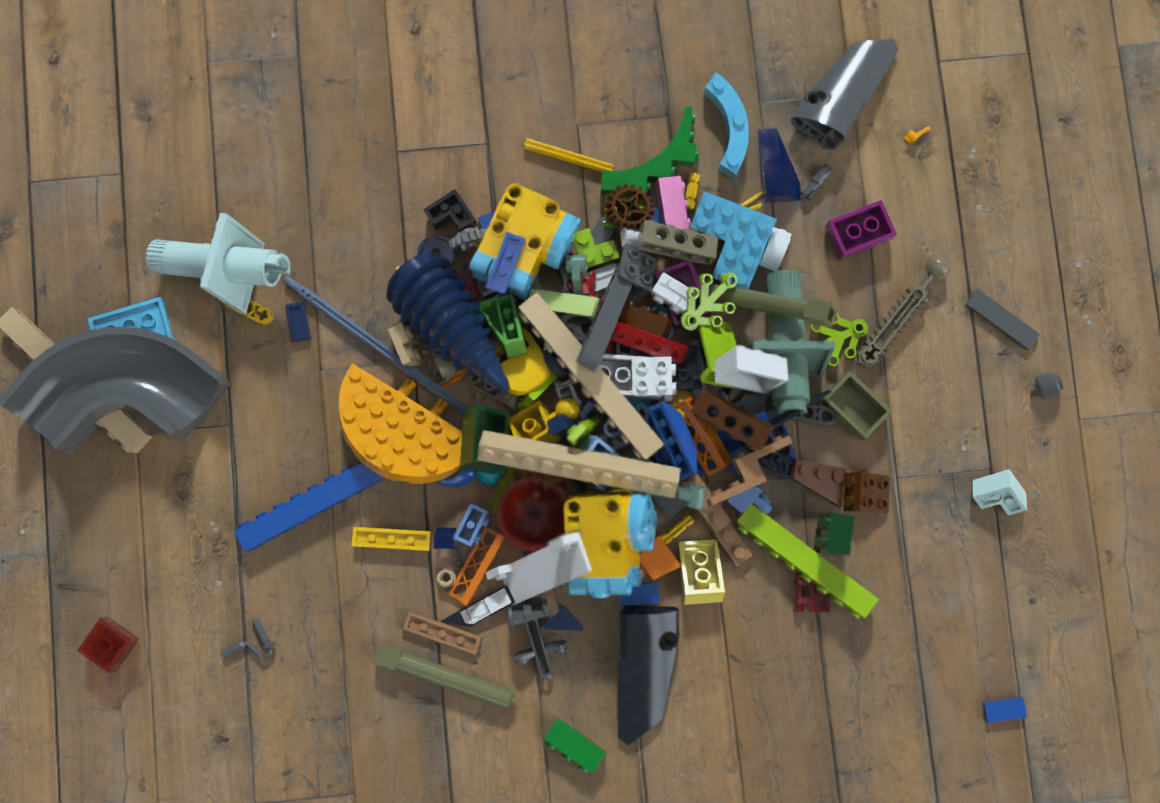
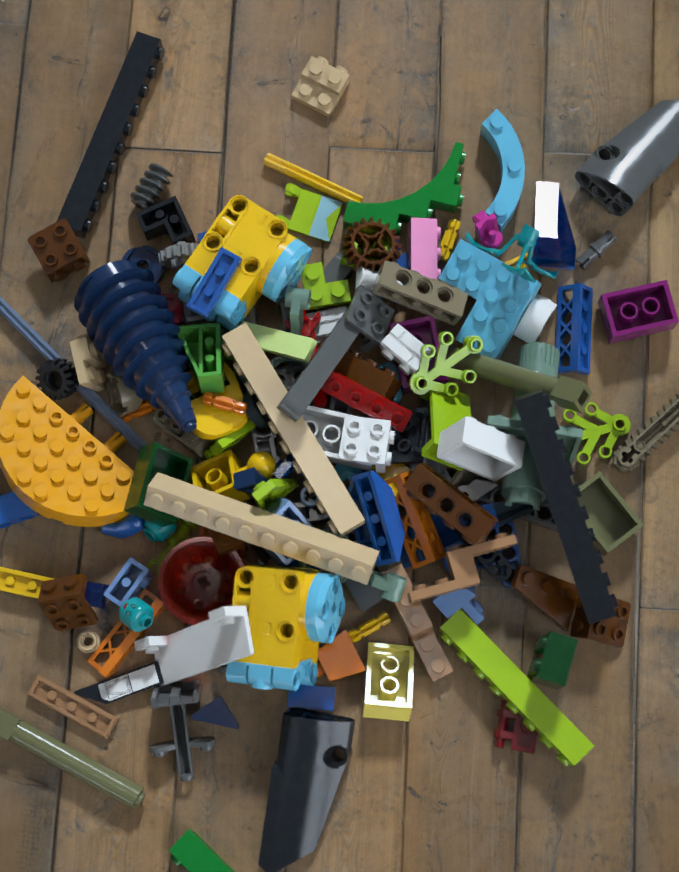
camera: 10 degrees right, 5 degrees down
(362, 250) = (58, 250): none -> reddish brown bracket
(388, 142) = (111, 133): none -> black brick
(390, 357) = (68, 378): none -> black tyre
(422, 548) = (65, 602): none -> reddish brown bracket
(430, 183) = (150, 186): none -> dark grey piece
(484, 550) = (136, 614): none -> teal head
(529, 363) = (224, 403): none -> orange axle
(562, 72) = (321, 85): none -> tan plate
(573, 187) = (313, 213): none -> lime flag
(724, 180) = (487, 230): none -> dark pink hips
(759, 184) = (526, 240): none -> teal plant
(812, 251) = (579, 327): none -> blue fence
(827, 406) = (565, 507): none -> black brick

